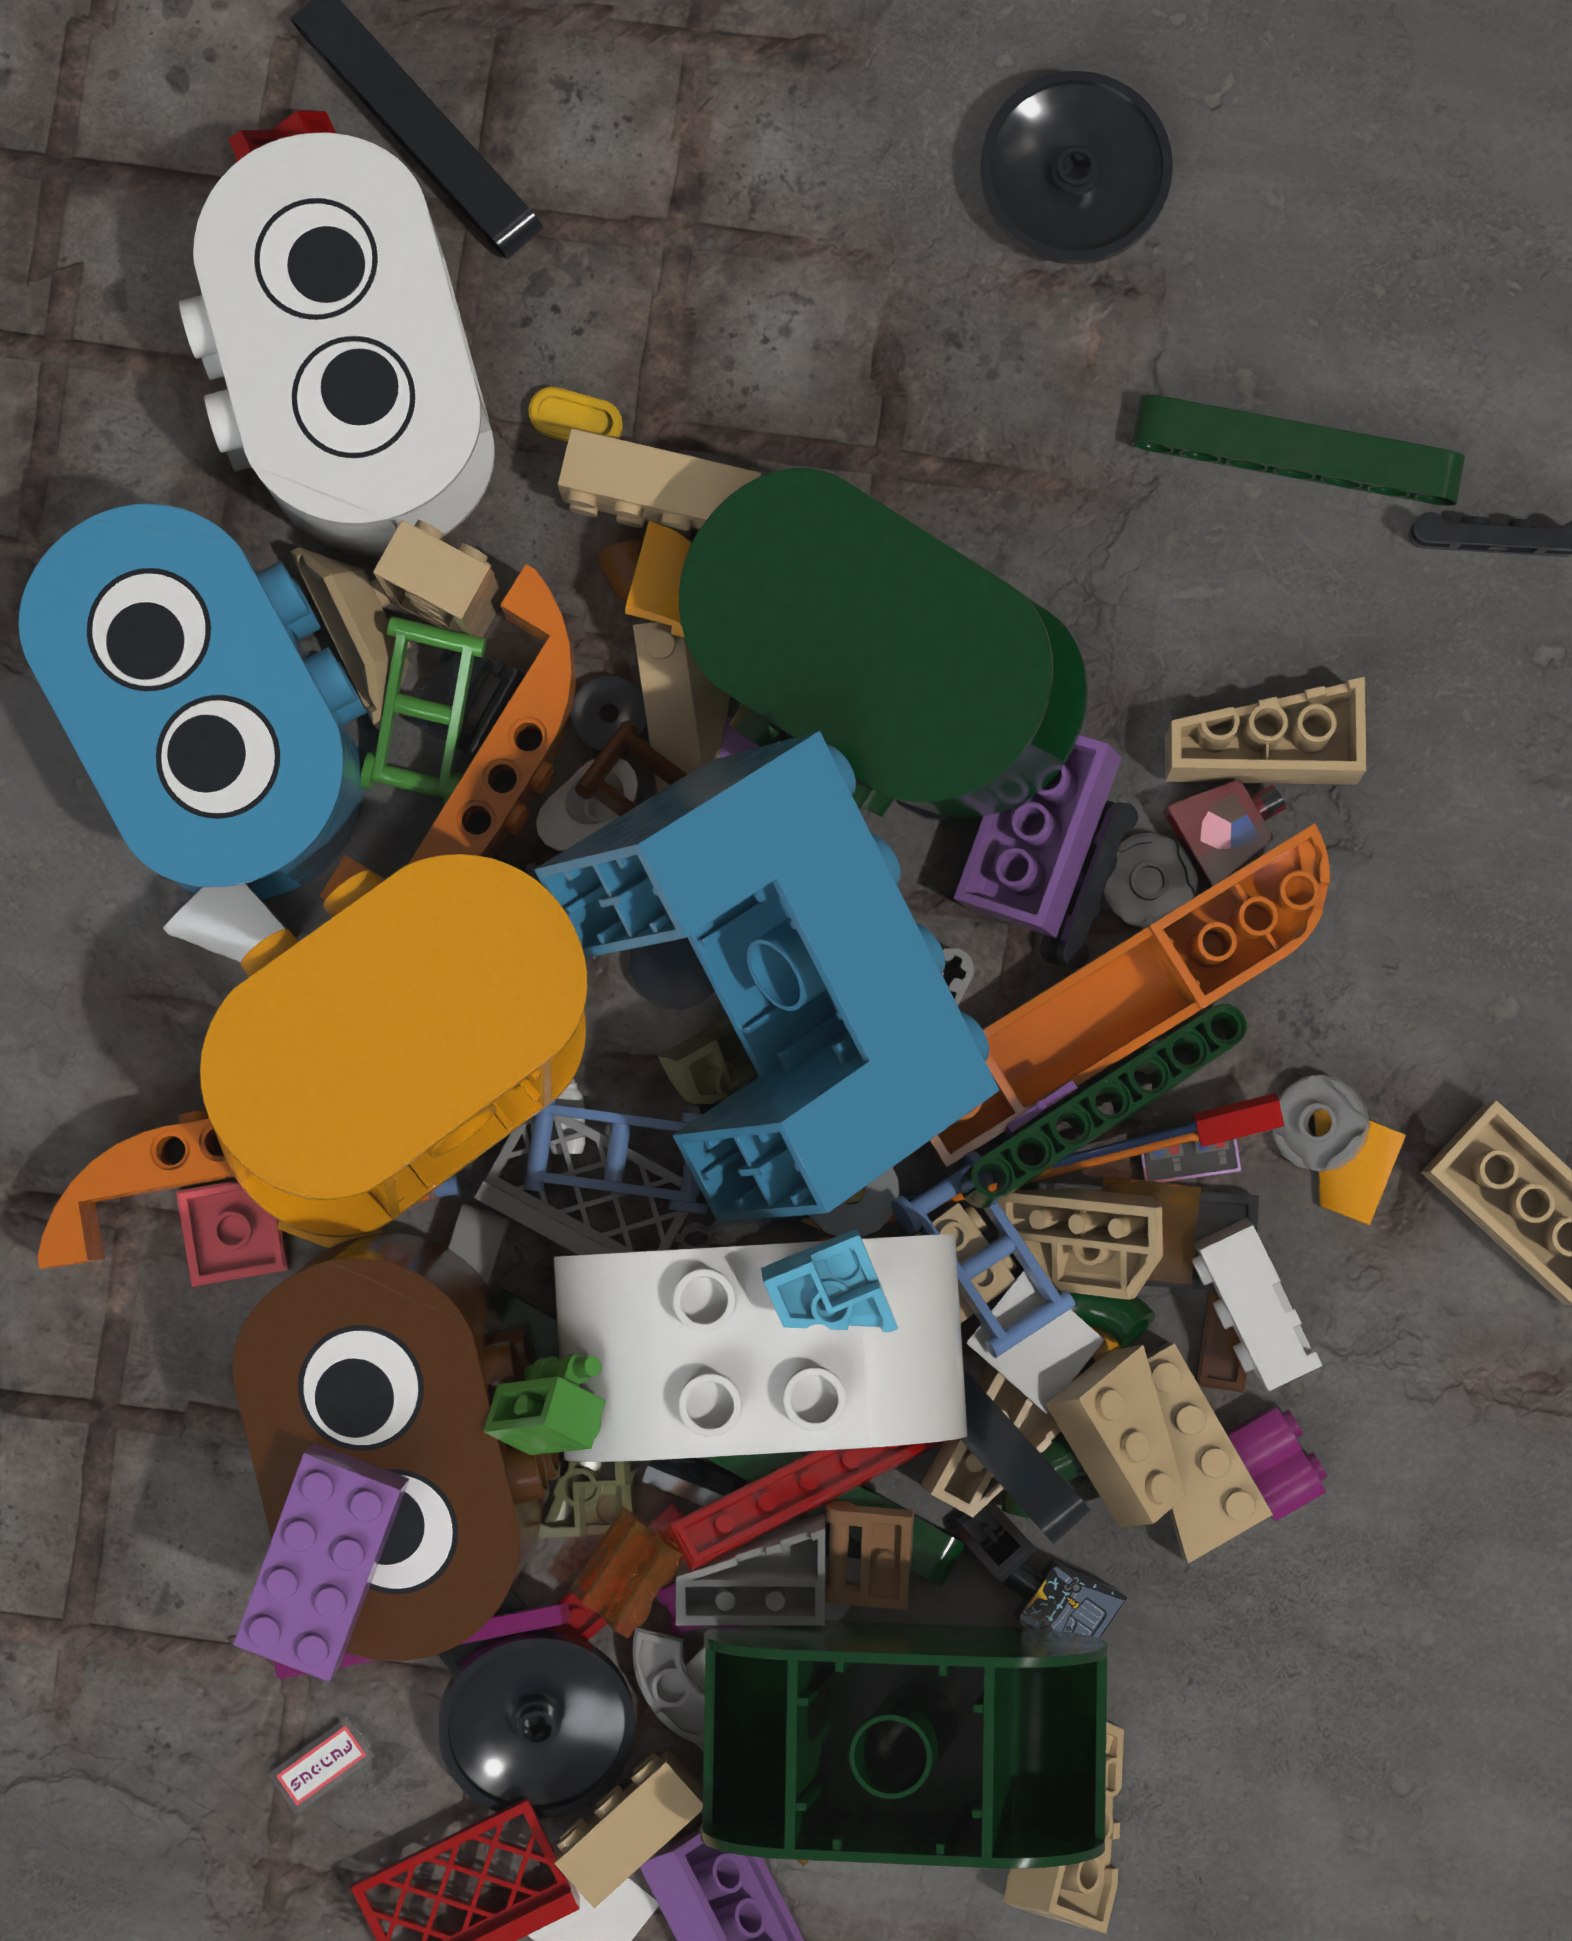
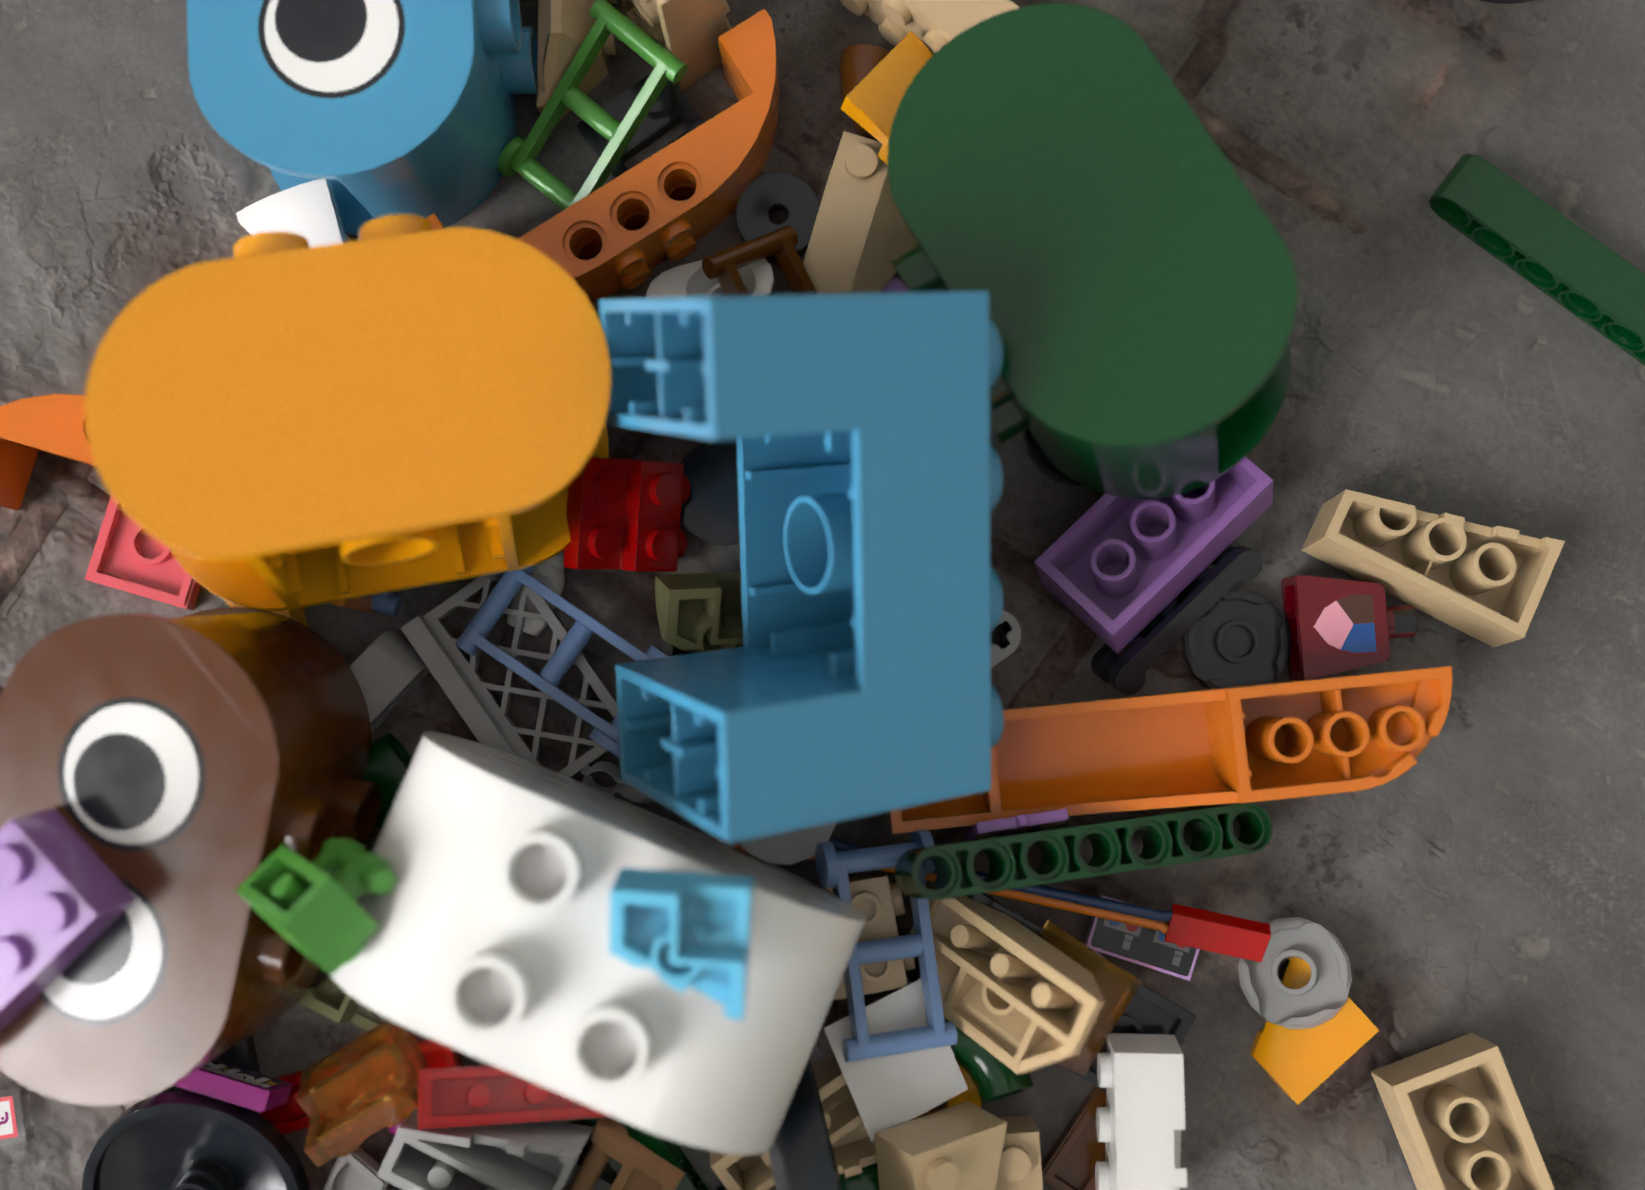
camera: 30 degrees right, 0 degrees up
(618, 1020) = (626, 515): none -> red plate

